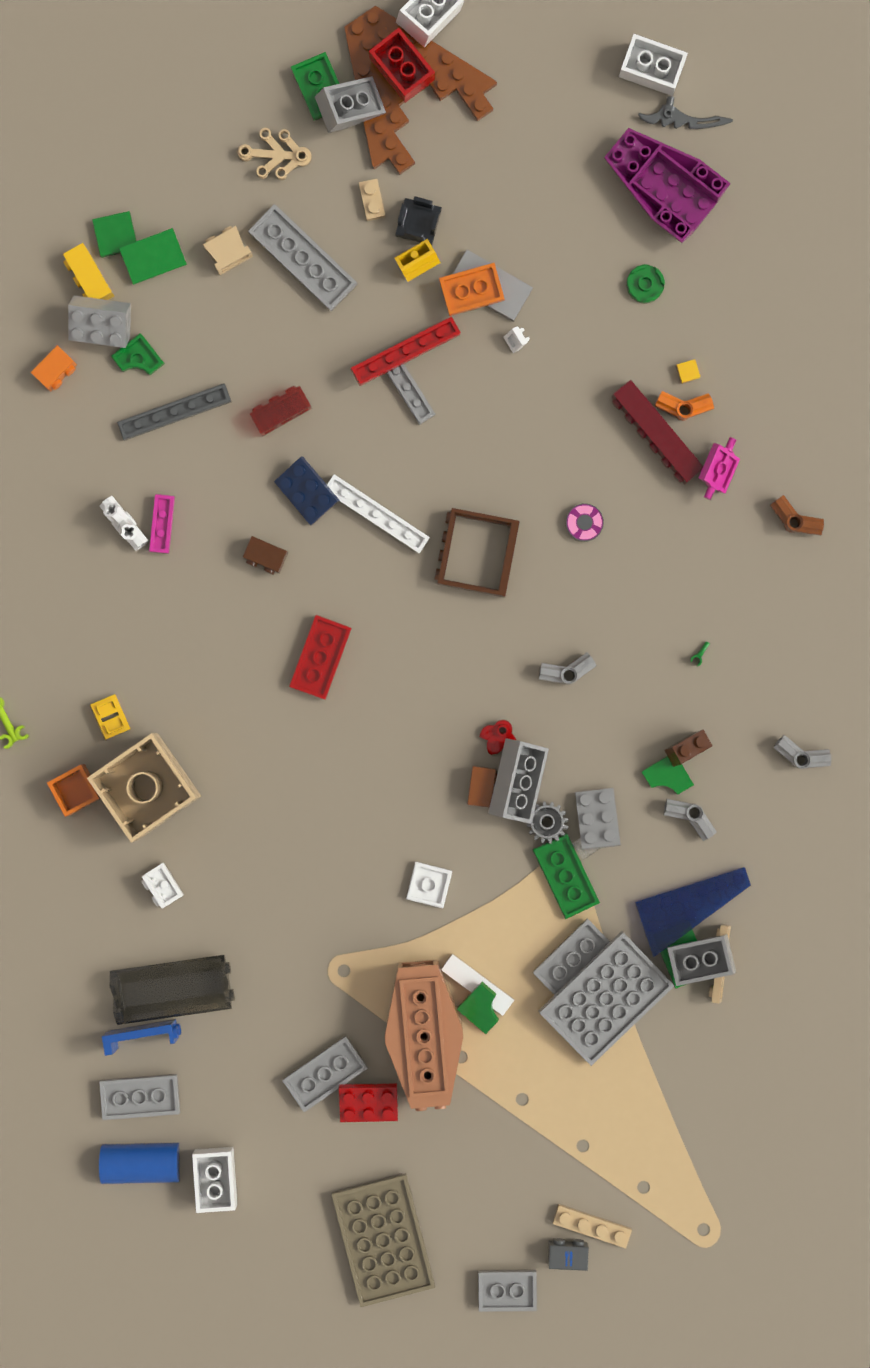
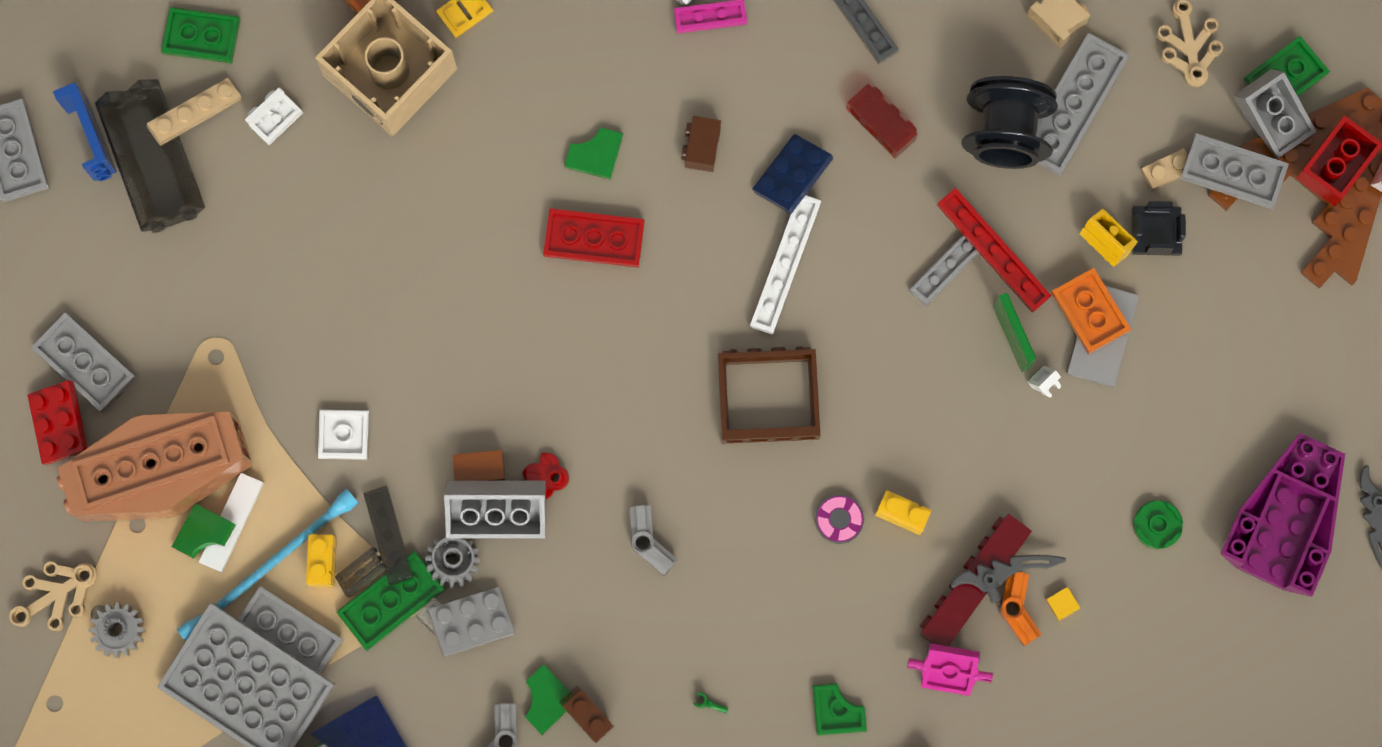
camera: 80 degrees right, 10 degrees down
(79, 930) = (200, 35): none -> green tile
(143, 947) = (193, 111): none -> tan plate
(254, 640) = (597, 155): none -> green tile
(311, 311) = (1010, 121): none -> black wheel
(389, 148) = (1234, 171): none -> light grey plate
(475, 352) = (1014, 332): none -> green tile
(484, 897) = (343, 503): none -> medium azure hose
(500, 1127) = (57, 592): none -> tan plant
(516, 867) = (388, 535): none -> clear smoke tile
(524, 922) = (321, 561): none -> yellow brick
(535, 880) = (378, 568): none -> clear smoke tile
(537, 1077) = (104, 630): none -> light grey gear
(592, 473) = (903, 512): none -> yellow brick
(660, 420) = (990, 579): none -> dark grey piece
(729, 562) = (836, 714): none -> green tile

